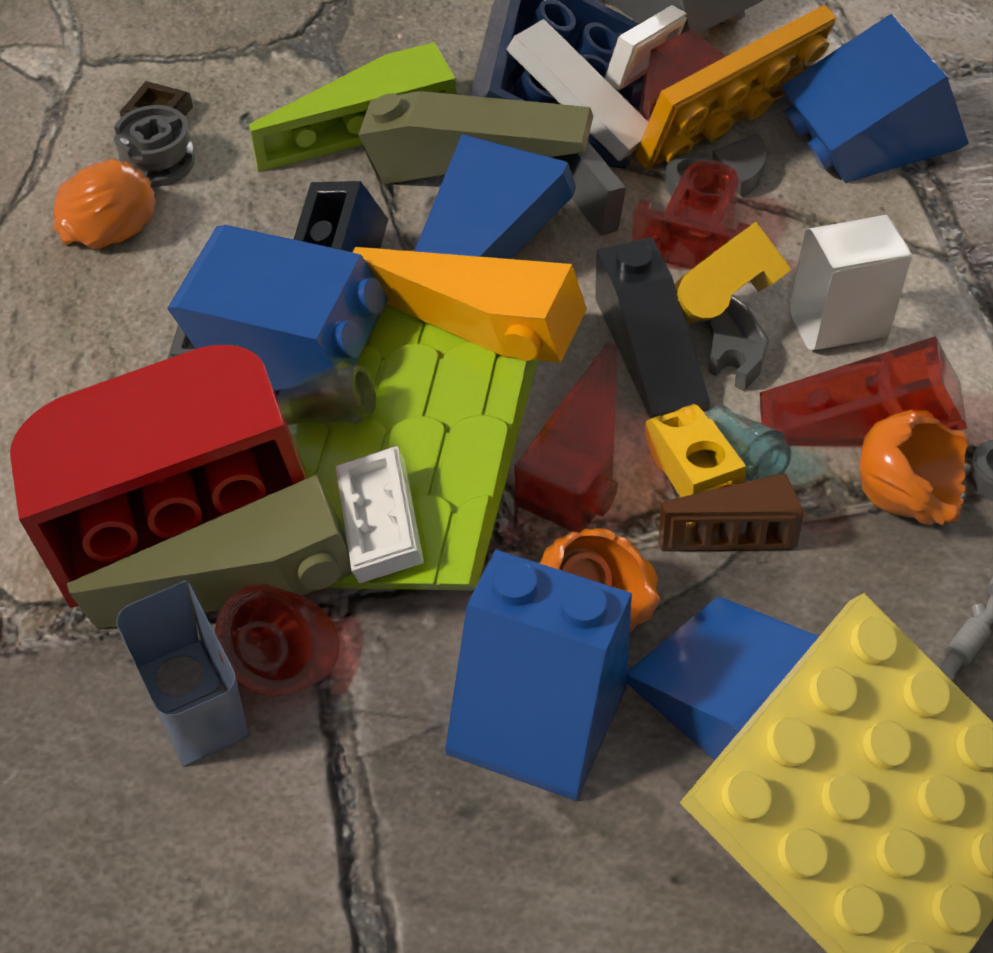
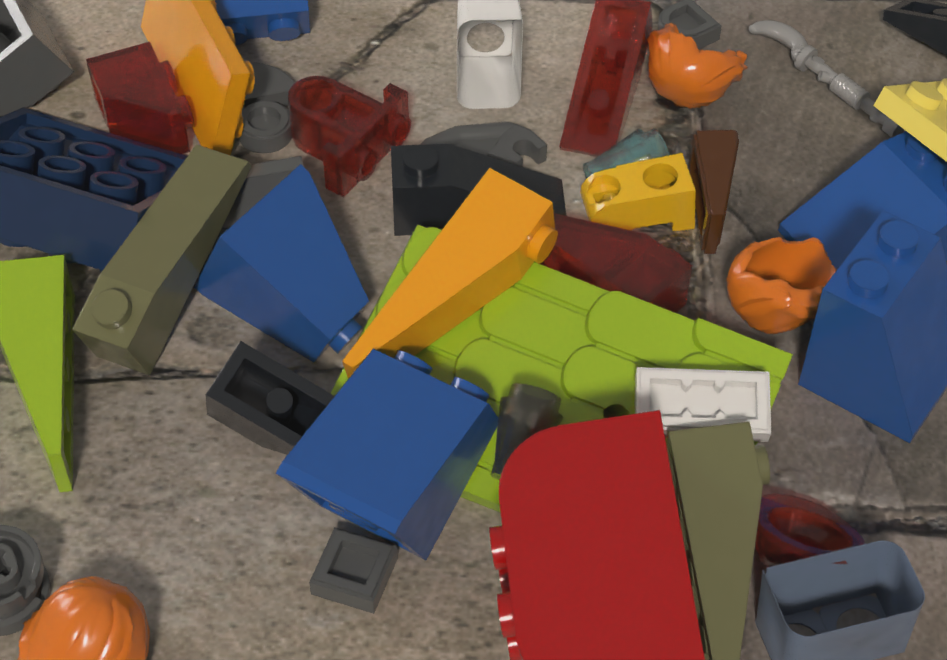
camera: 80 degrees left, 0 degrees up
(577, 83) = (123, 158): white tile -> none
(633, 47) = (84, 102): white tile -> none
(710, 285) = (450, 110): yellow leg -> none

